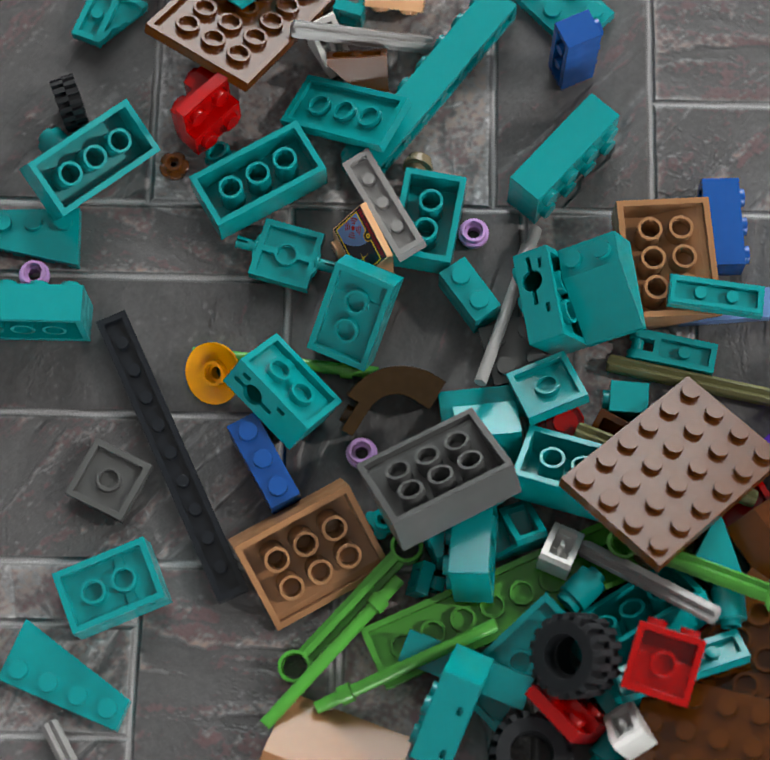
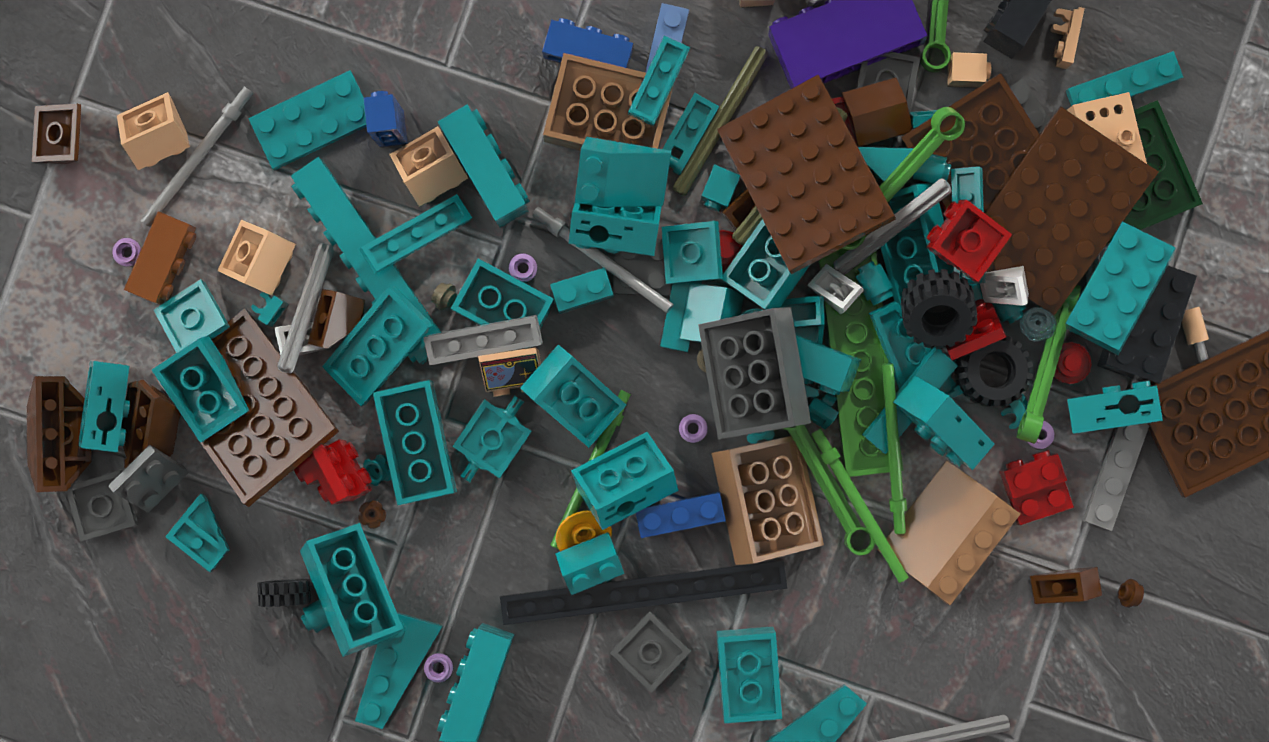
camera: 75 degrees left, 15 degrees up
(185, 386) = (589, 563): none -> teal brick
(403, 380) = (641, 388): dark brown arch -> none
(471, 116) = (415, 234): none -> teal plate
(538, 108) = (428, 166): none -> light nougat slope

